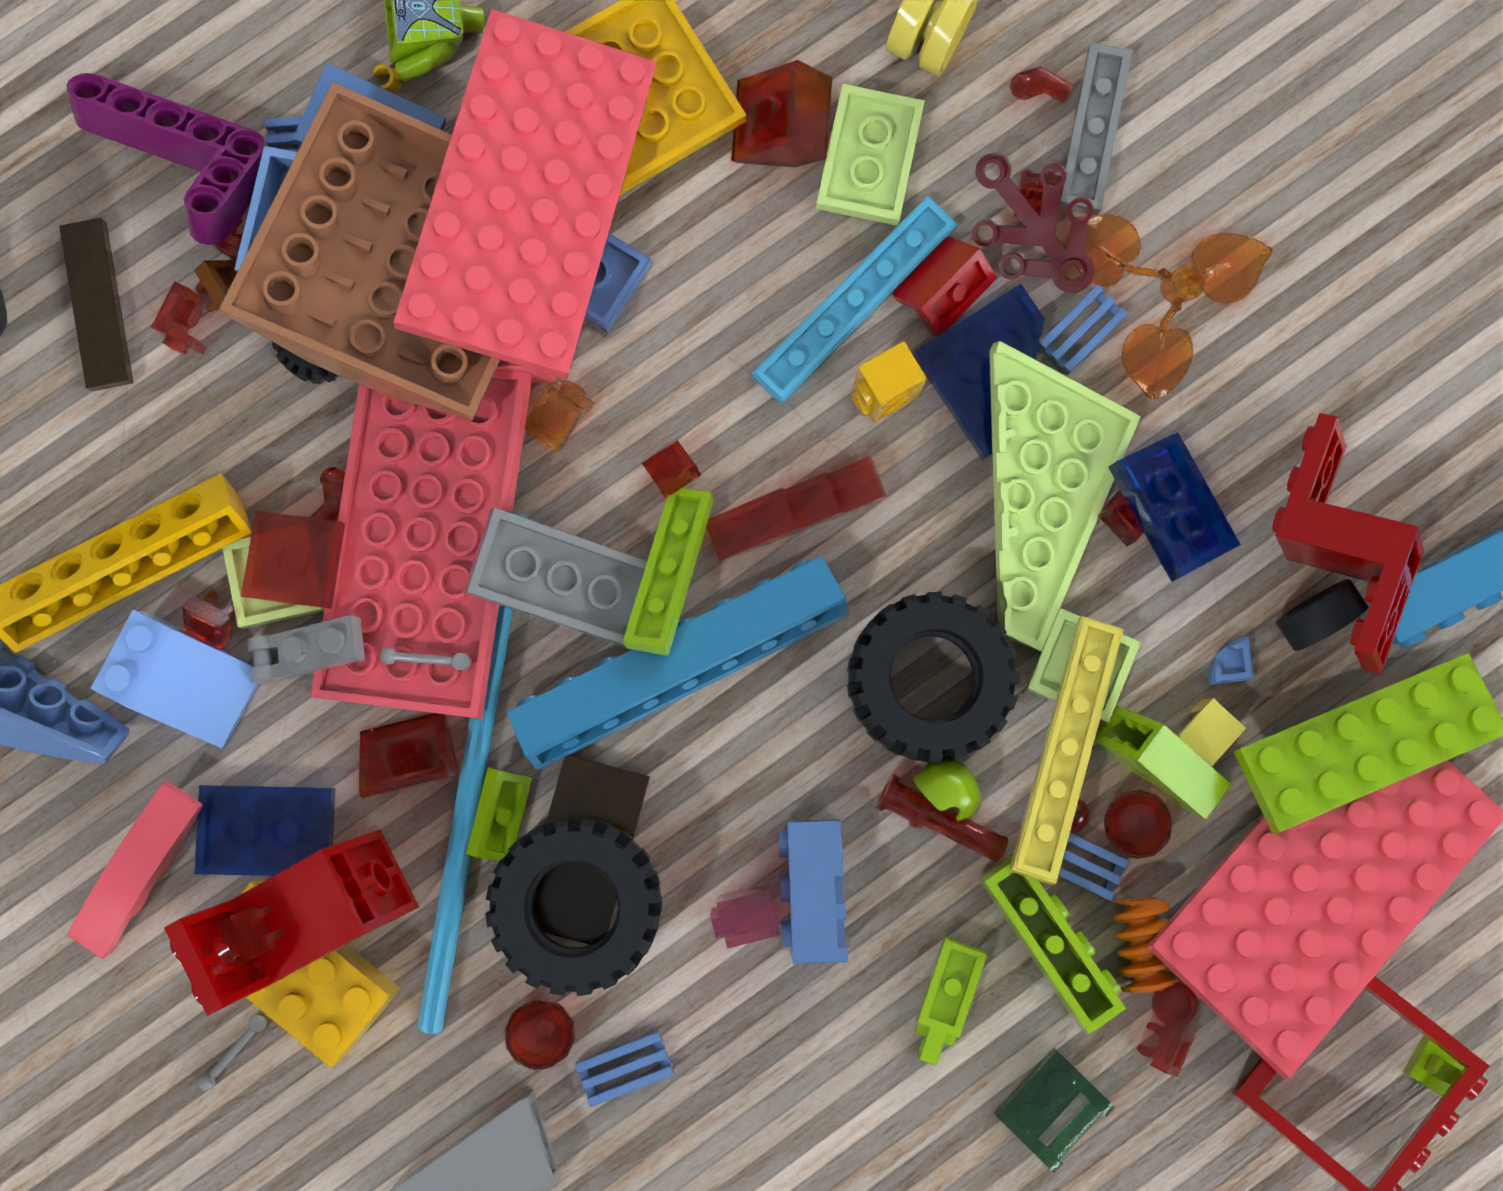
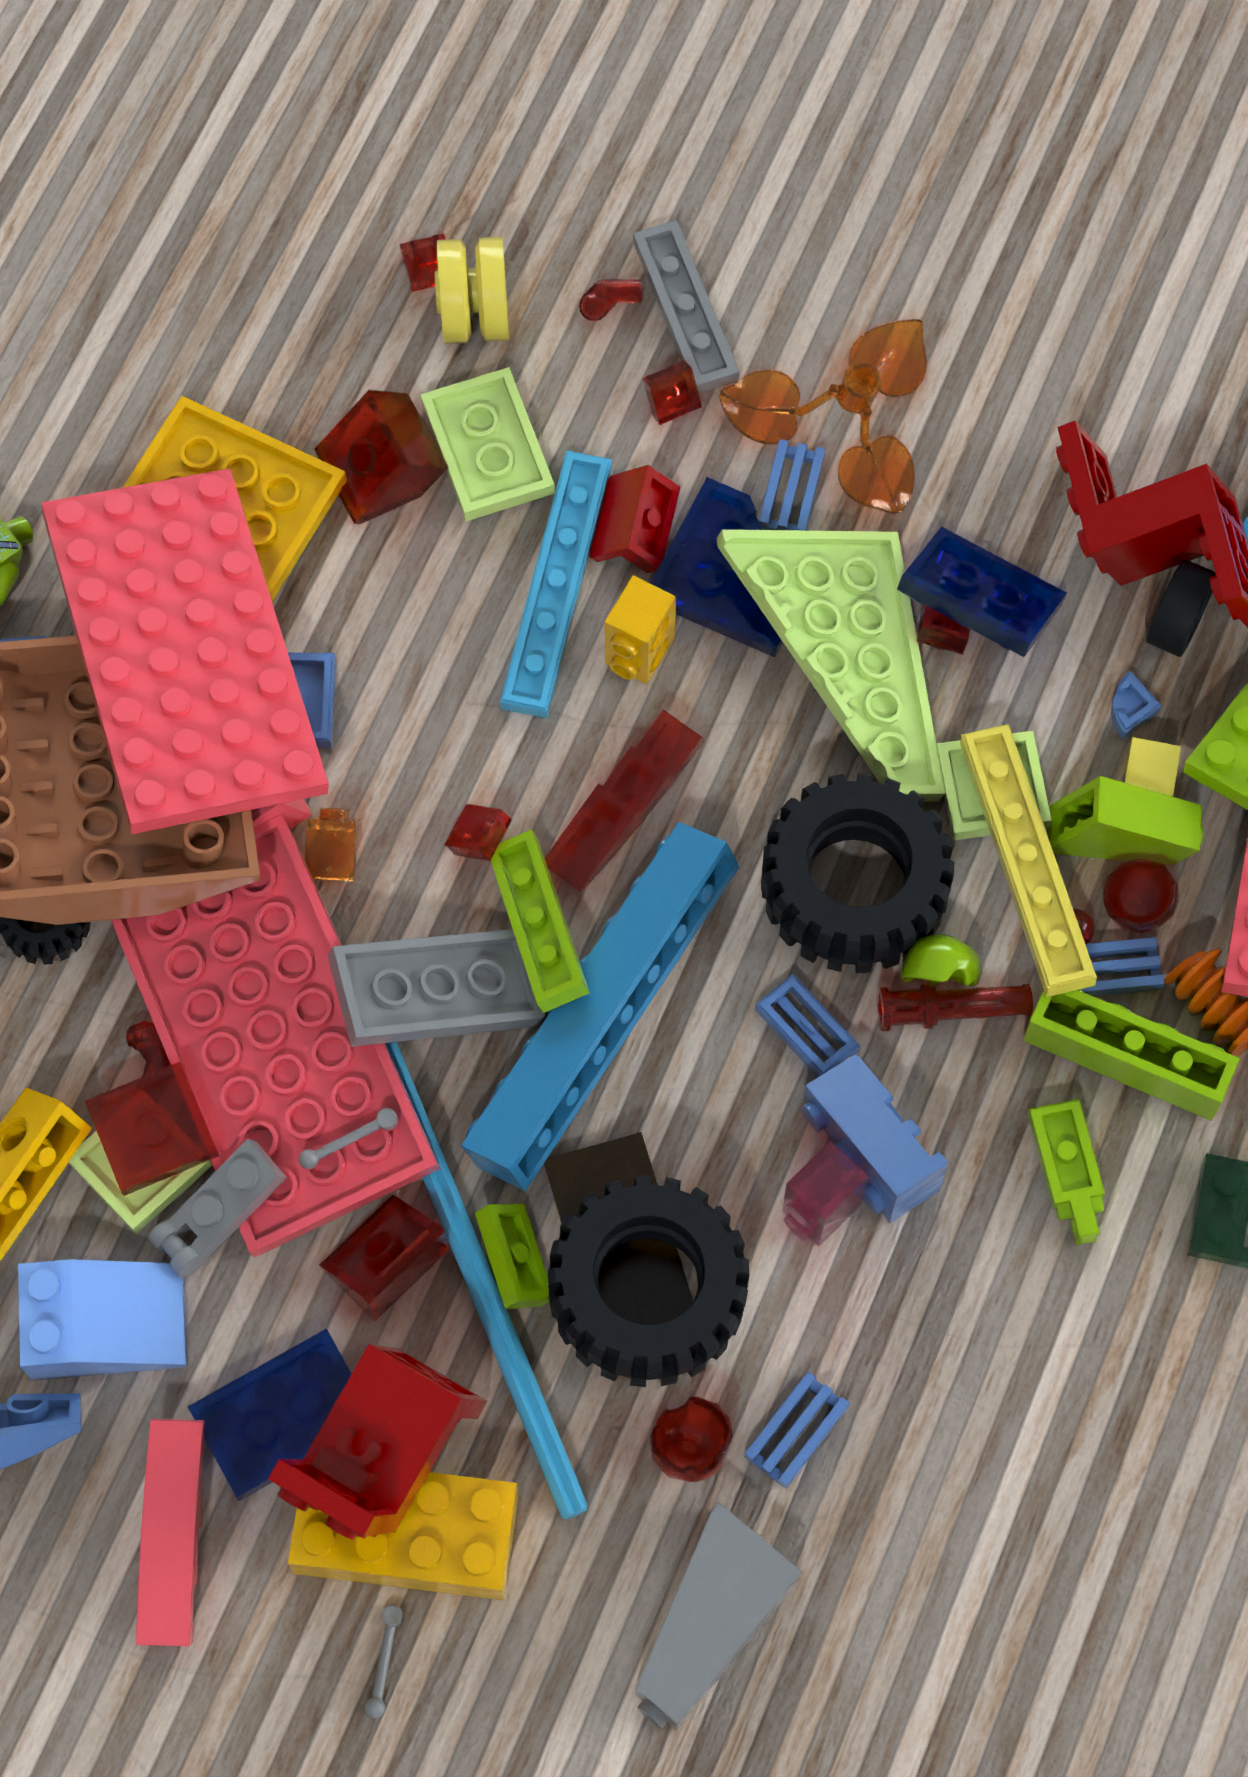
camera: 30 degrees left, 15 degrees down
(207, 621) = (97, 1238): clear red tile -> none
(828, 805) = (789, 1036): none -> medium blue tile
(1038, 229) = (693, 419): dark red plant -> none

